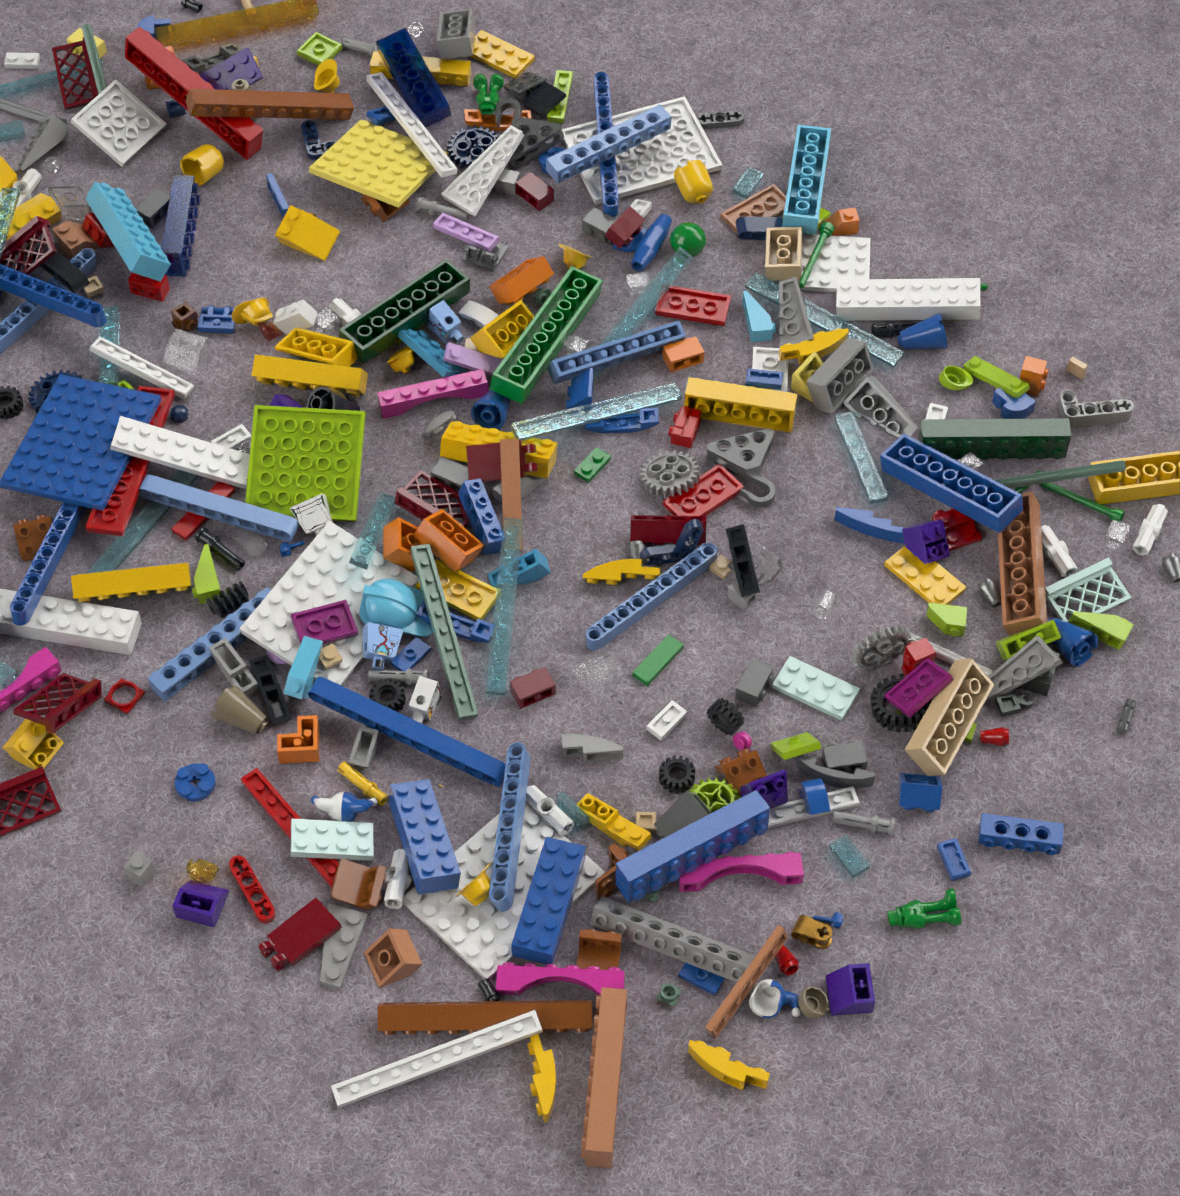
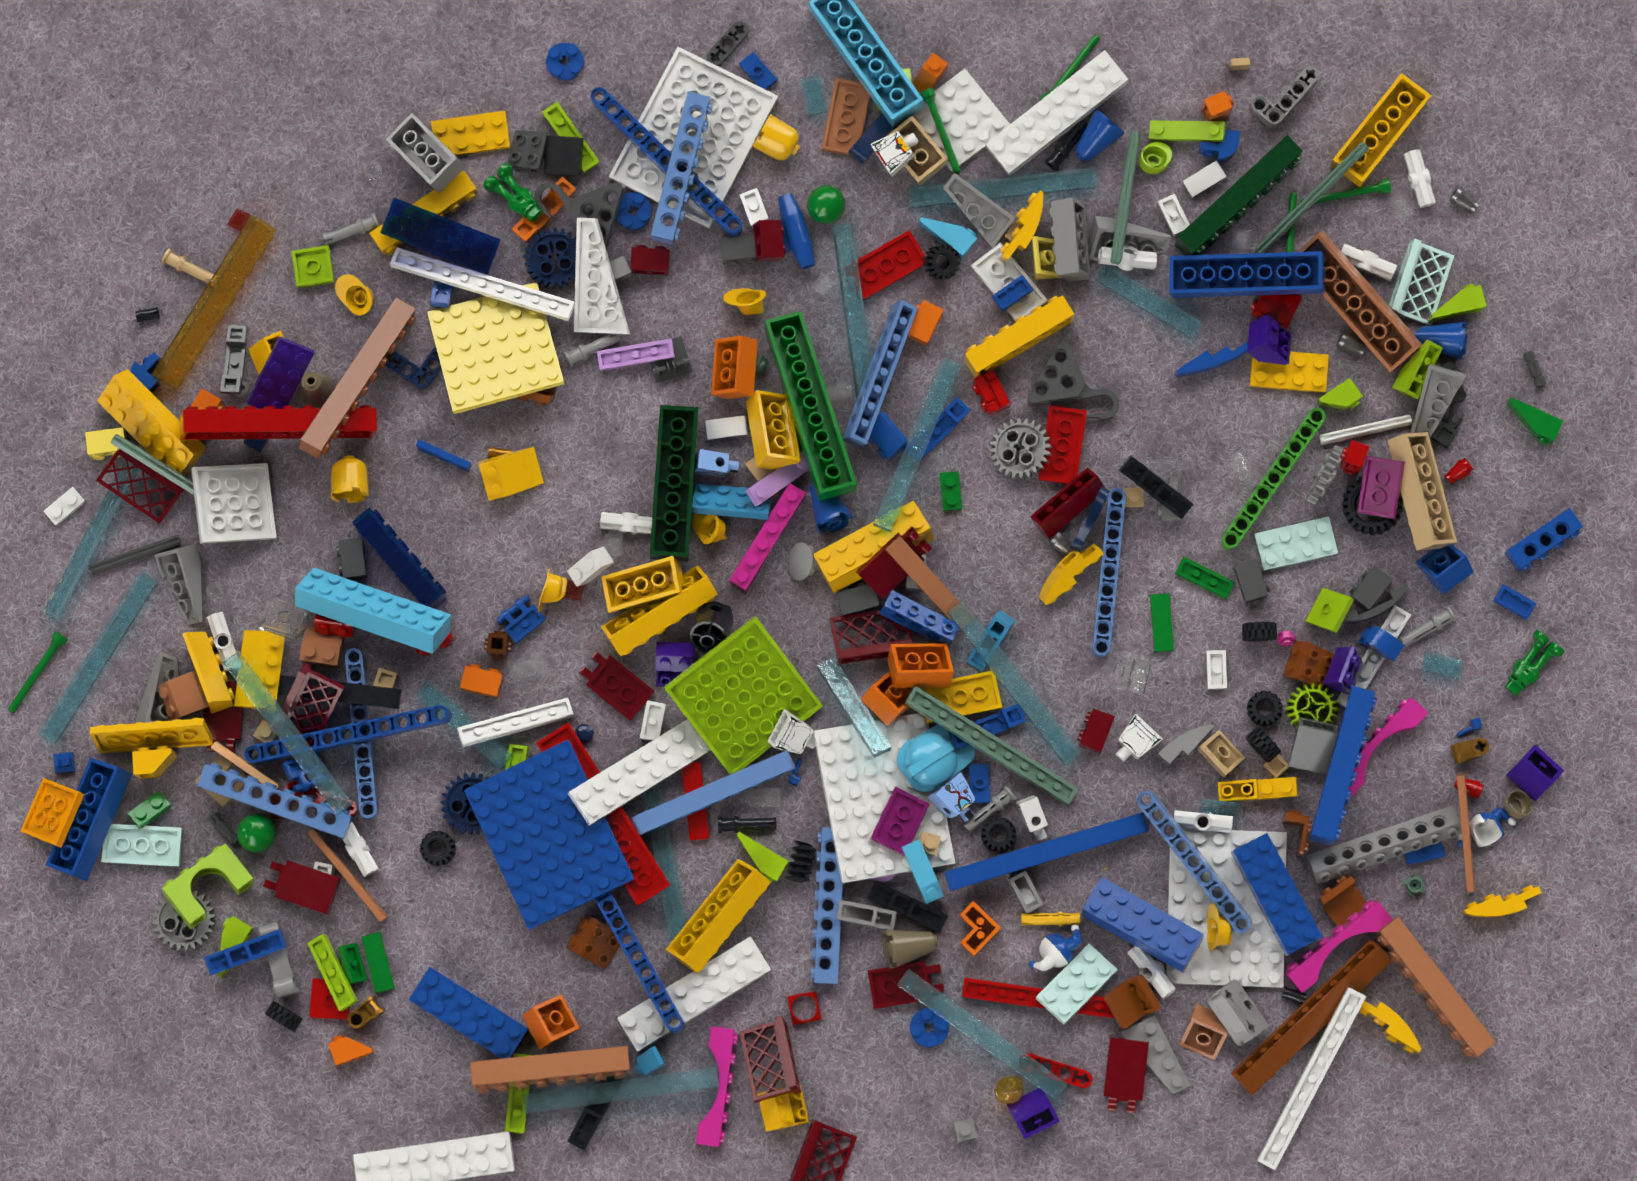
camera: 40 degrees left, 25 degrees up
(115, 64) = (149, 422): none -> yellow brick
(150, 332) = (481, 681): none -> orange brick
(210, 738) = (884, 983): none -> dark red tile
(225, 814) = (982, 1034): none -> clear light blue plate
(233, 402) = (617, 685): none -> dark red tile
(429, 959) = (1237, 1012): none -> light grey axle
(556, 716) = (1137, 739): none -> white torso
(602, 51) = (573, 67): none -> blue plate
(610, 777) = (1221, 753): none -> tan slope
(648, 792) = (1263, 744): none -> black tyre
(721, 657) = (1204, 578): none -> green tile
(724, 146) = (758, 71): none -> blue plate
(733, 337) = (951, 258): none -> black tyre
(766, 235) = (895, 151): none -> torso
(830, 630) = (1279, 472): none -> bright green beam
(871, 418) = (1130, 258): none -> white piece
(906, 378) = (1125, 197): none -> sand green axle
(972, 411) = (1204, 178): none -> white slope
(1095, 754) = (1539, 423): none -> green slope

